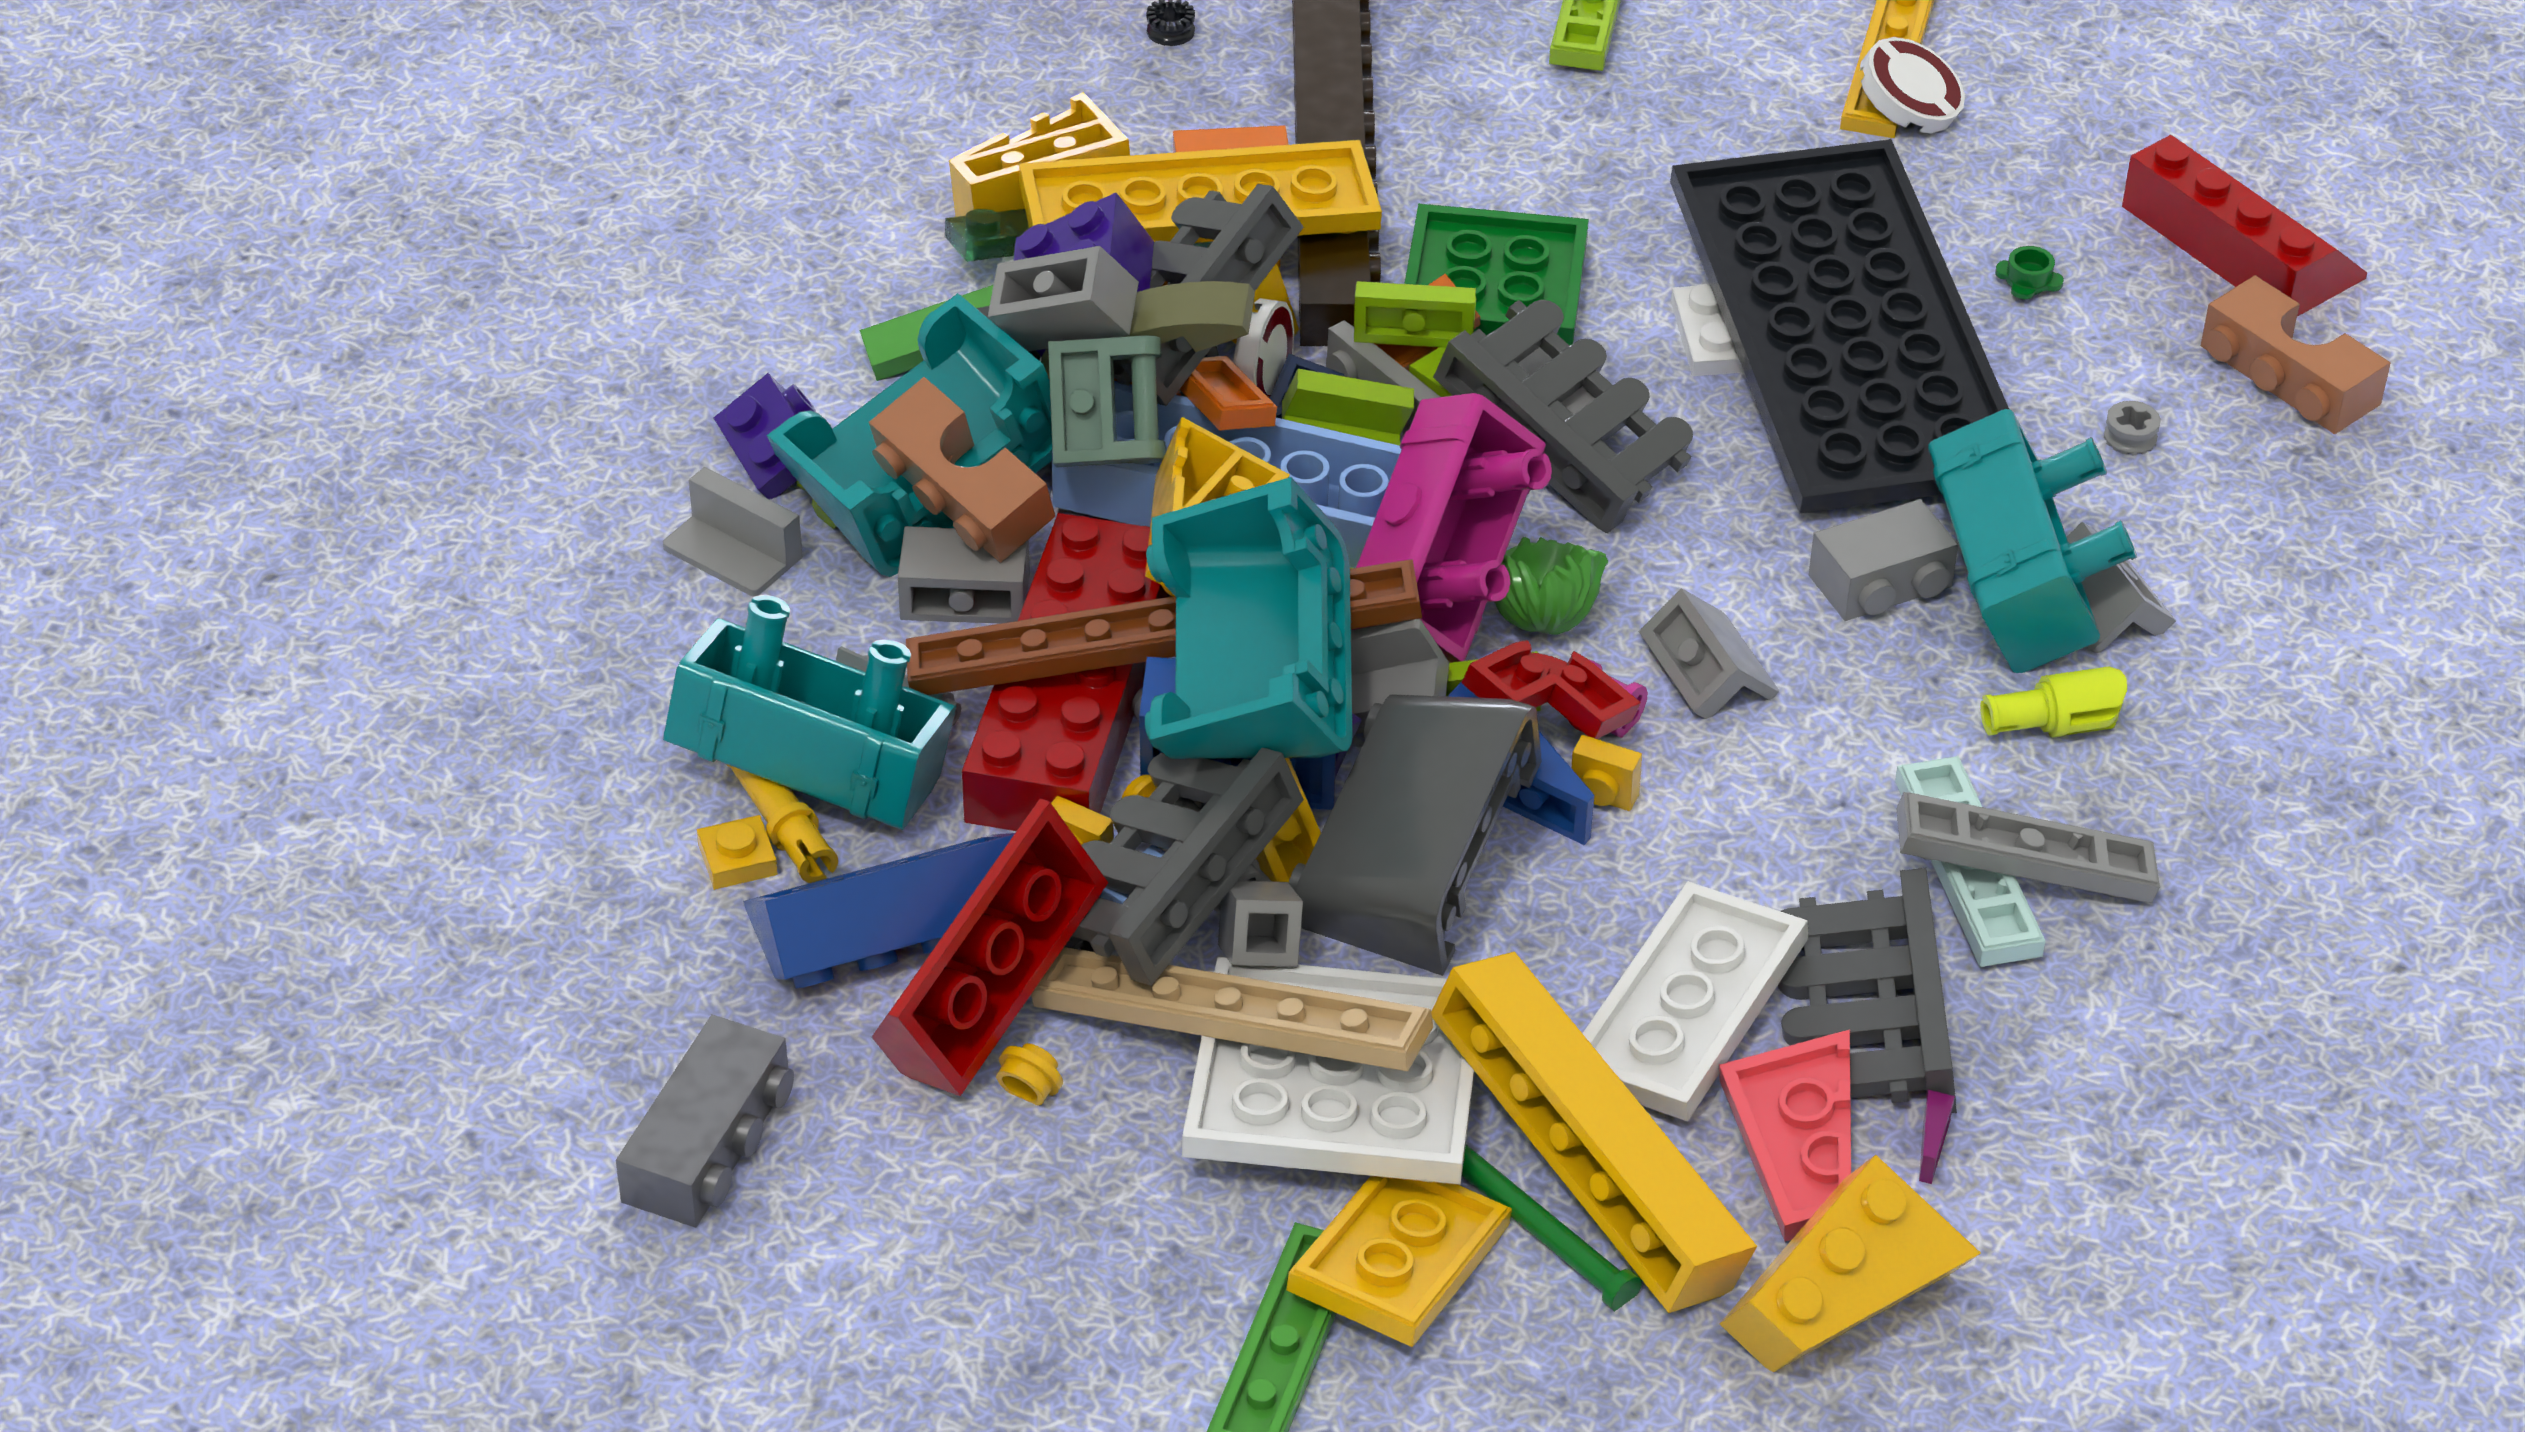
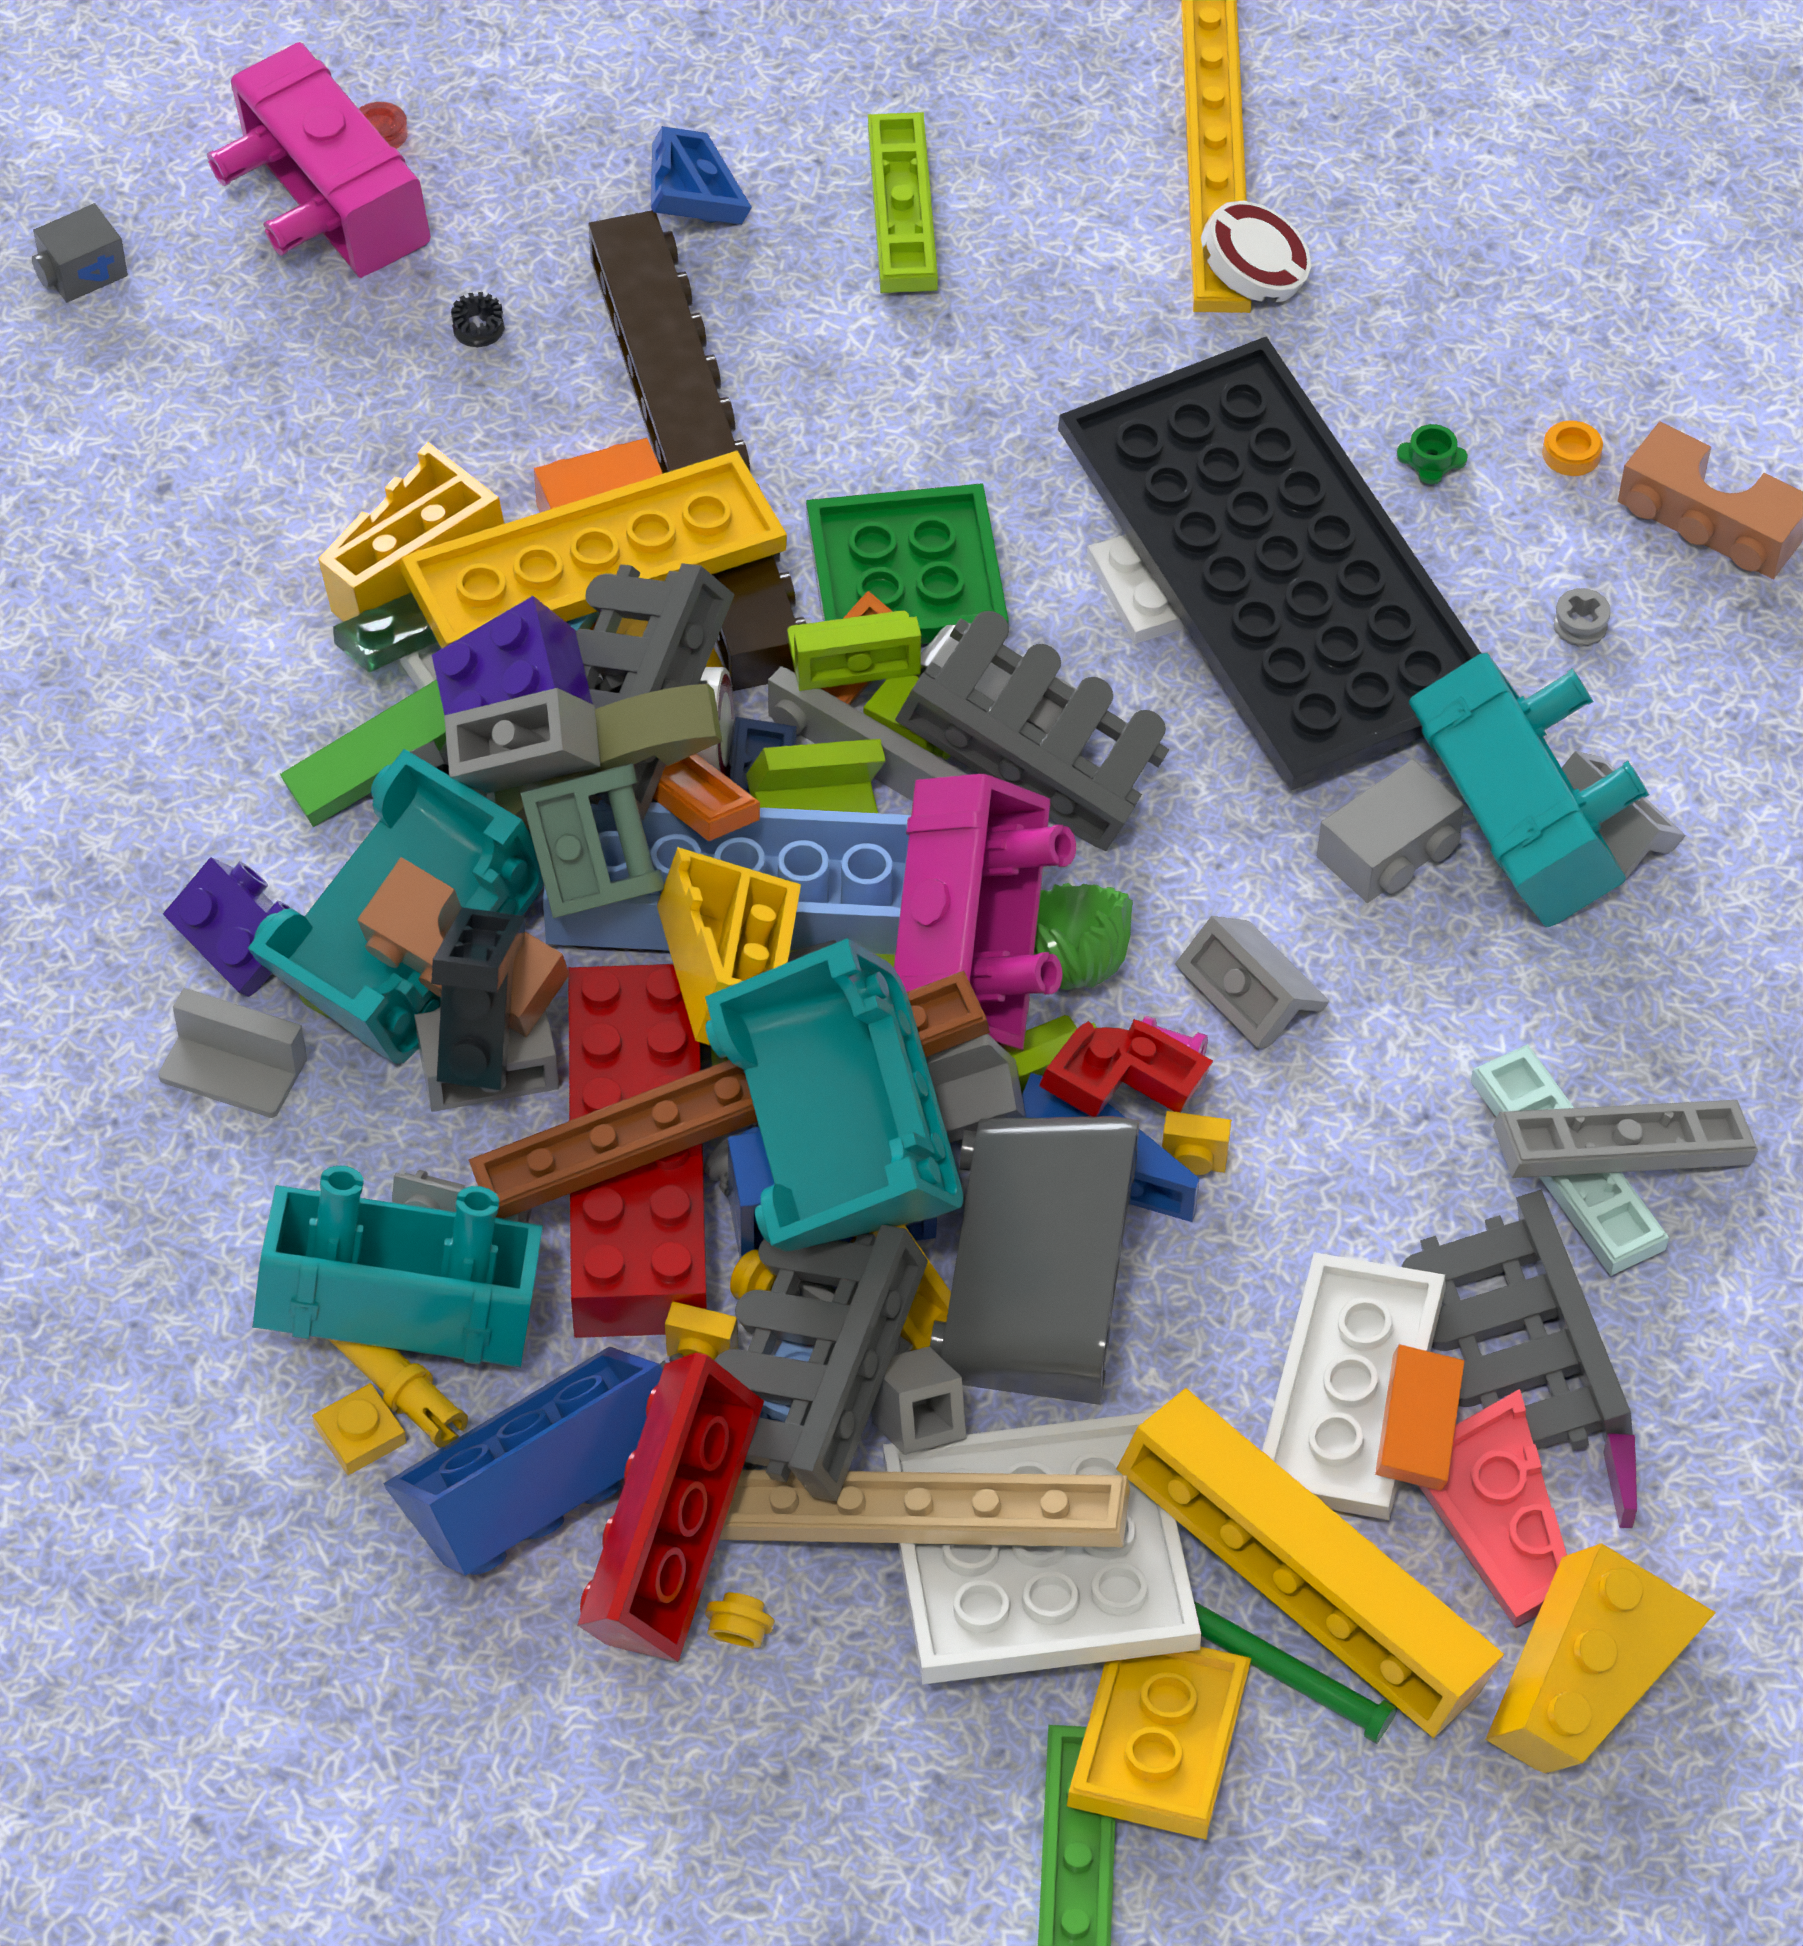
camera: 15 degrees left, 10 degrees up
(704, 1121) = (438, 1755): flat silver brick -> none
(953, 503) = (476, 996): none -> black bracket
(1740, 1030) = (1420, 1417): none -> orange tile
(2059, 704) = (1605, 961): neon yellow arm -> none
(2169, 294) = (1572, 448): none -> light orange tile
(2232, 226) = (1616, 359): red slope -> none

